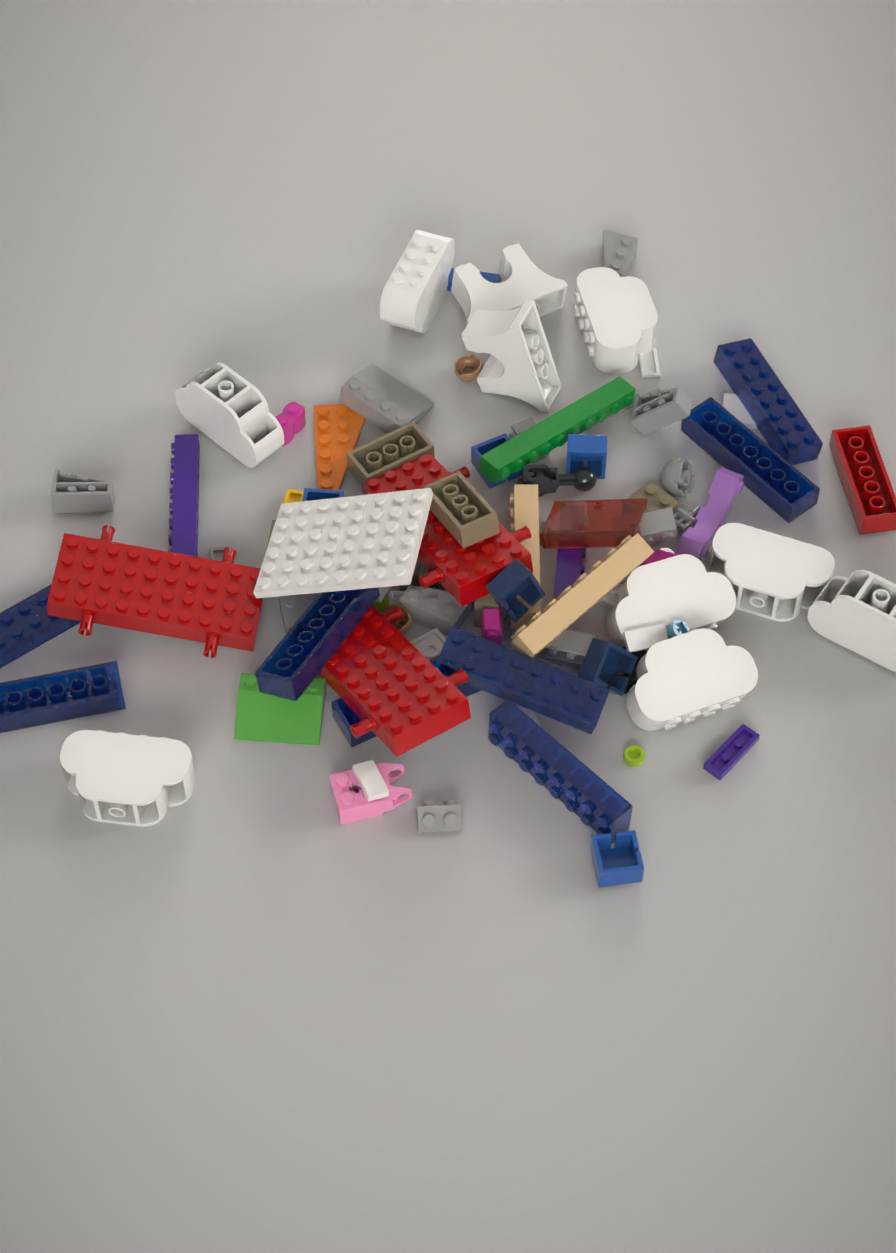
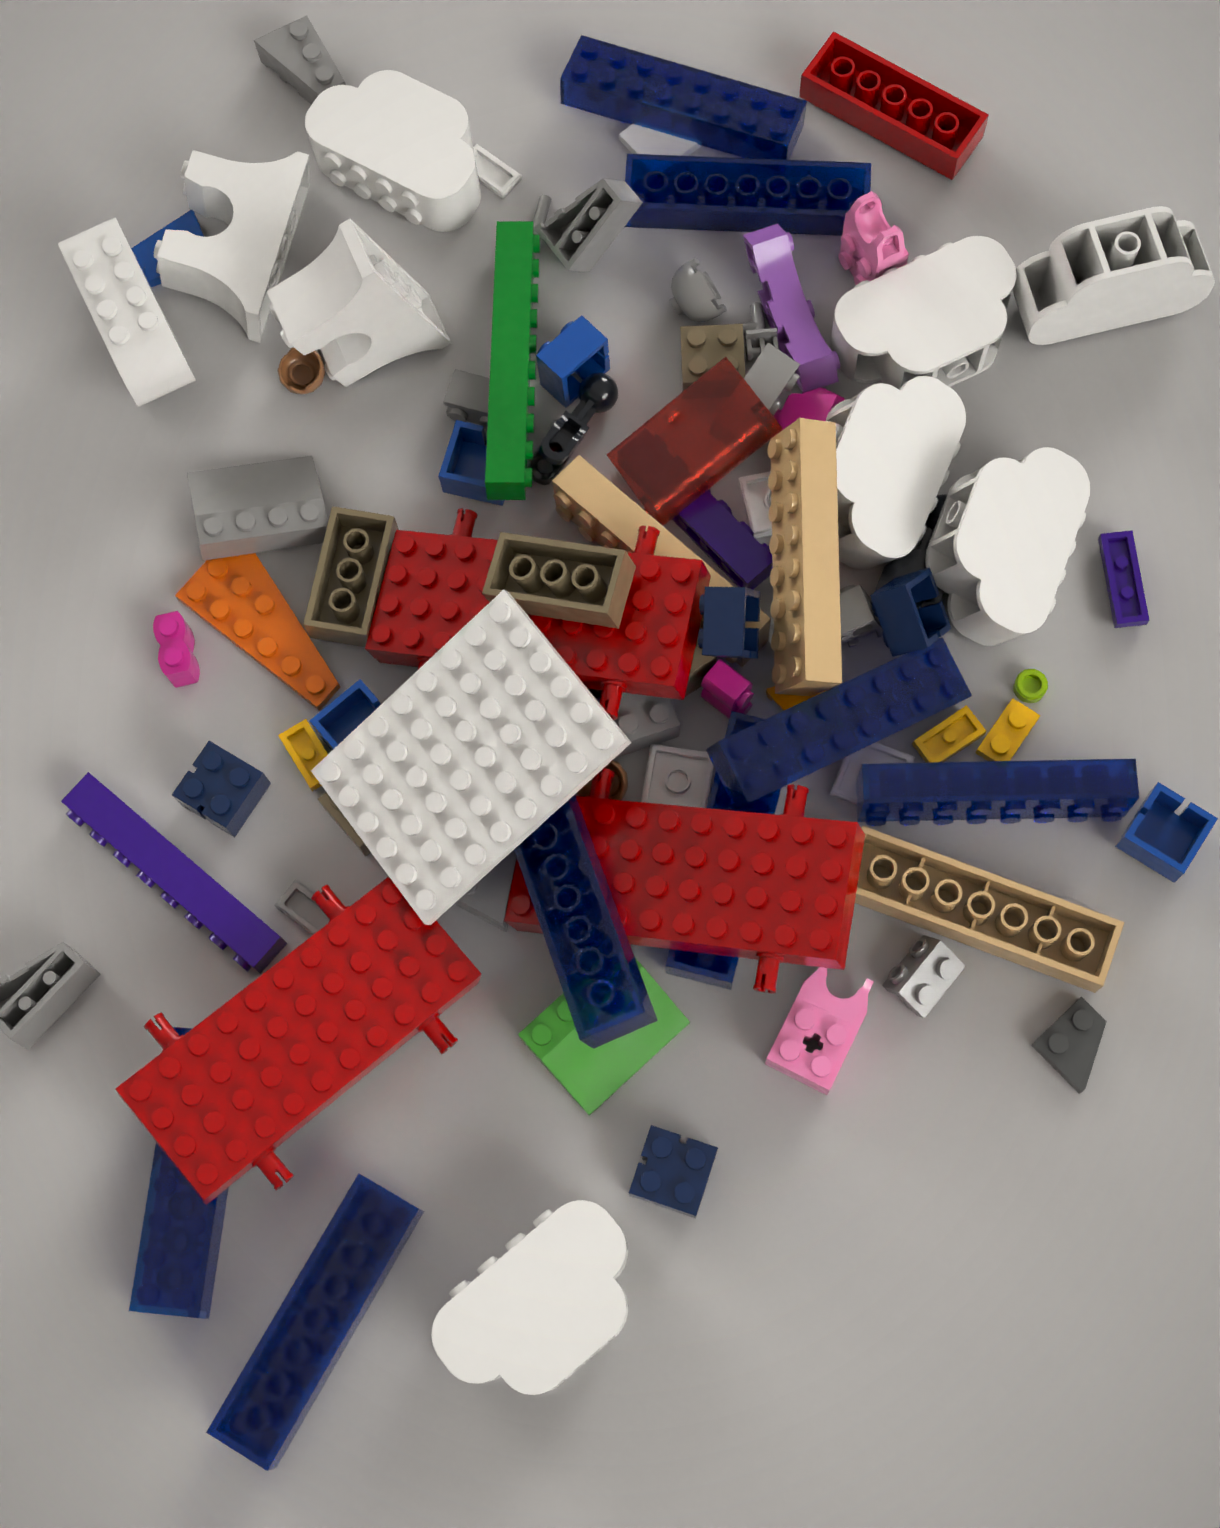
camera: 40 degrees left, 20 degrees up
(231, 414) = (104, 709): white brick -> none
(239, 785) = (673, 1172): none -> dark blue piece
(241, 487) = (223, 786): none -> dark blue piece
(370, 780) = (826, 1019): white tile -> none
(471, 903) = (1073, 1043): none -> dark grey wing
(494, 811) = (986, 911): none -> tan brick
(571, 739) = (949, 736): none -> yellow plate
(602, 763) = (1008, 732): none -> yellow plate
(644, 638) = (917, 536): white tile -> none
(677, 628) = (940, 492): dark azure tile -> none
(779, 511) = (869, 242): none -> bright pink brick

